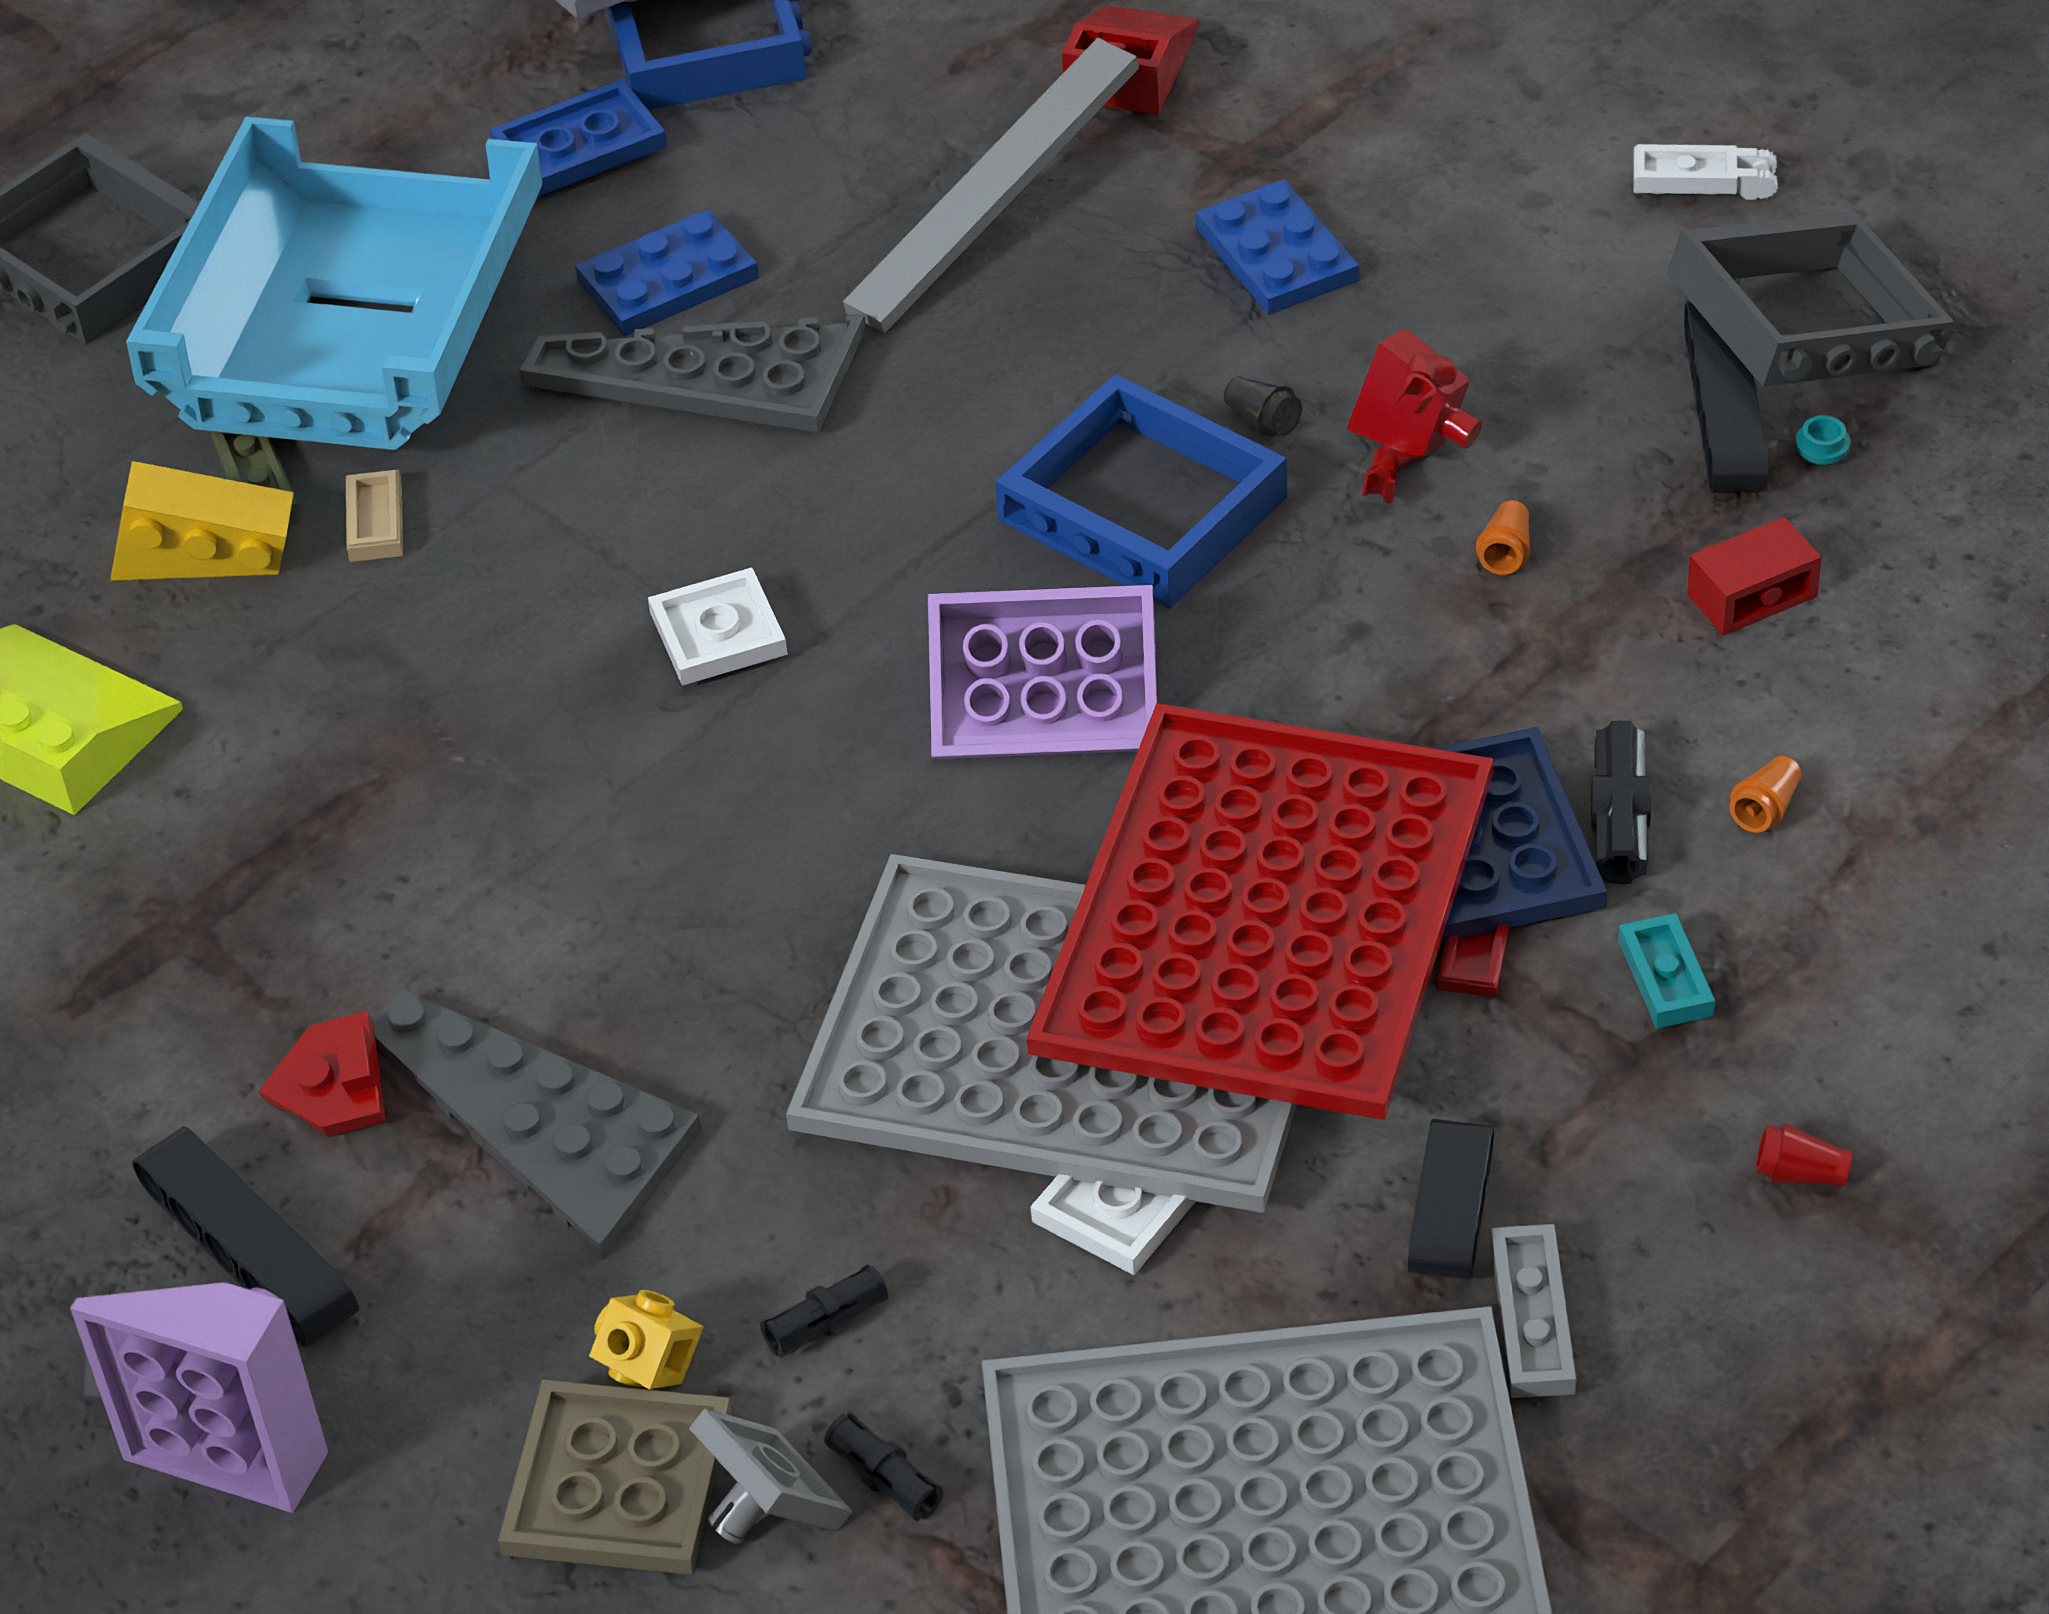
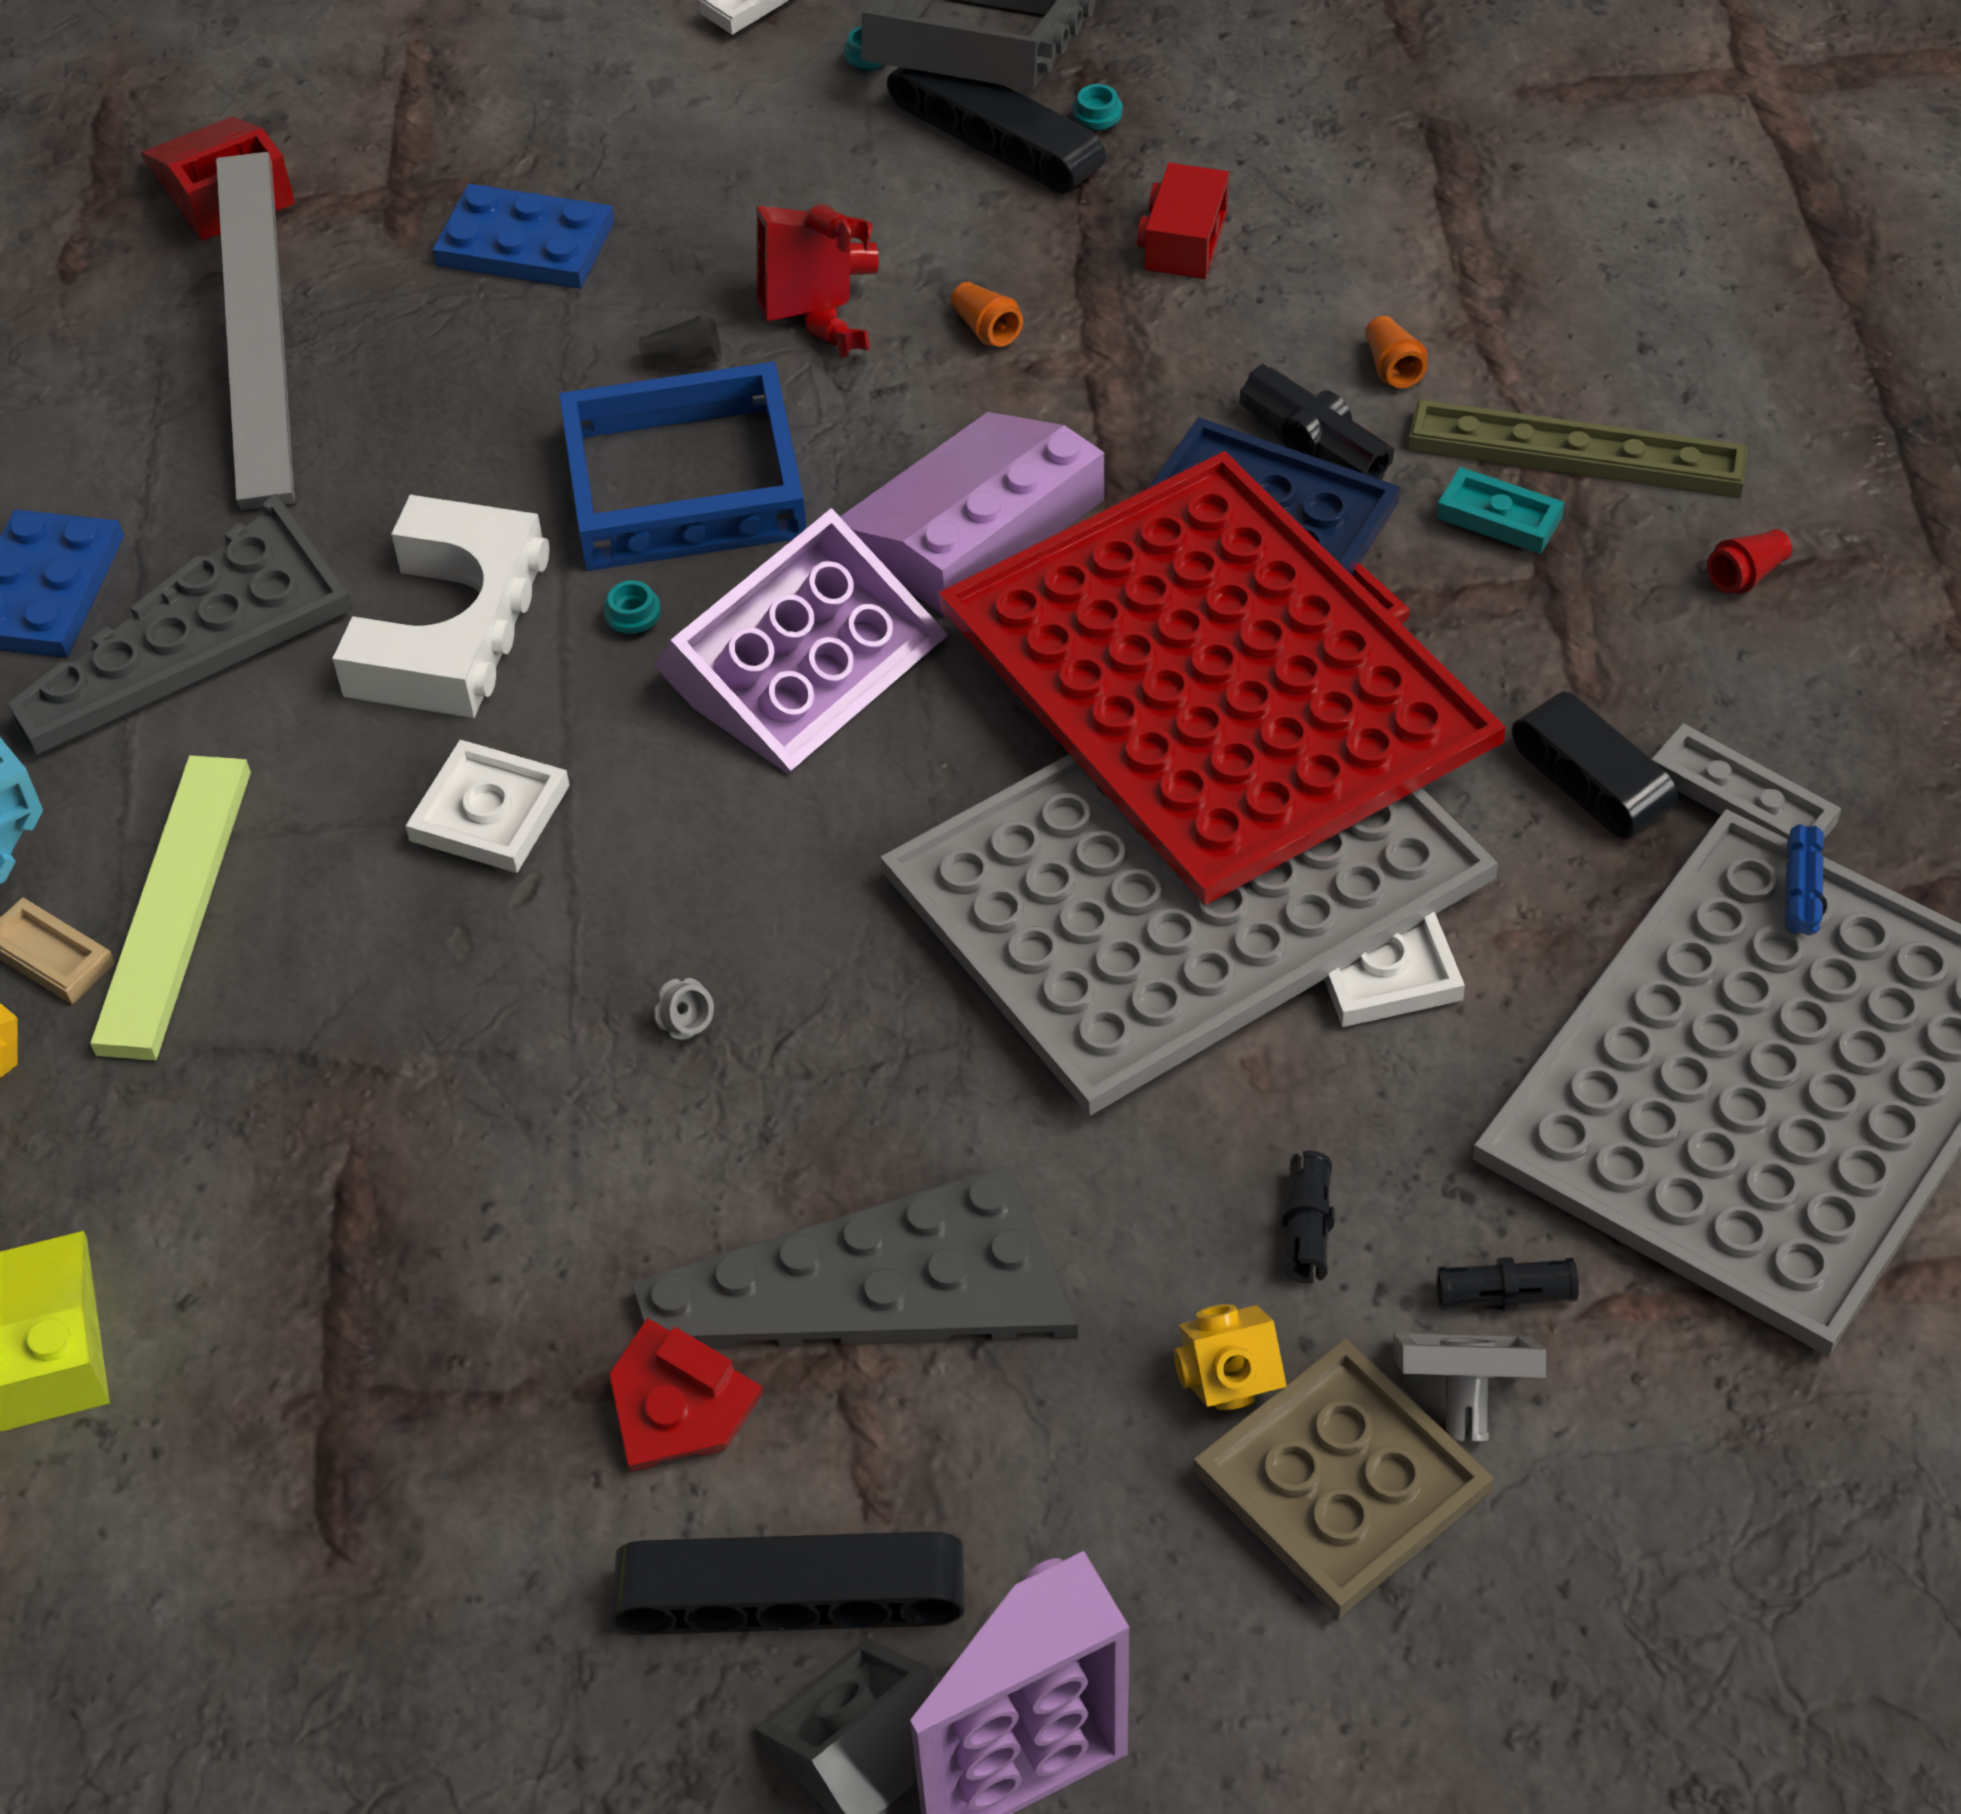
camera: 50 degrees left, 5 degrees up
(471, 543) = (171, 909): none -> yellowish green tile
(643, 863) = (697, 1011): none -> light grey plate
(825, 513) = (454, 661): none -> white arch
(980, 565) = (631, 607): none -> teal plate
(1300, 668) = (979, 501): none -> lavender slope
(1457, 1395) = (1804, 880): none -> blue axle
(1810, 979) = (1579, 448): none -> olive tile

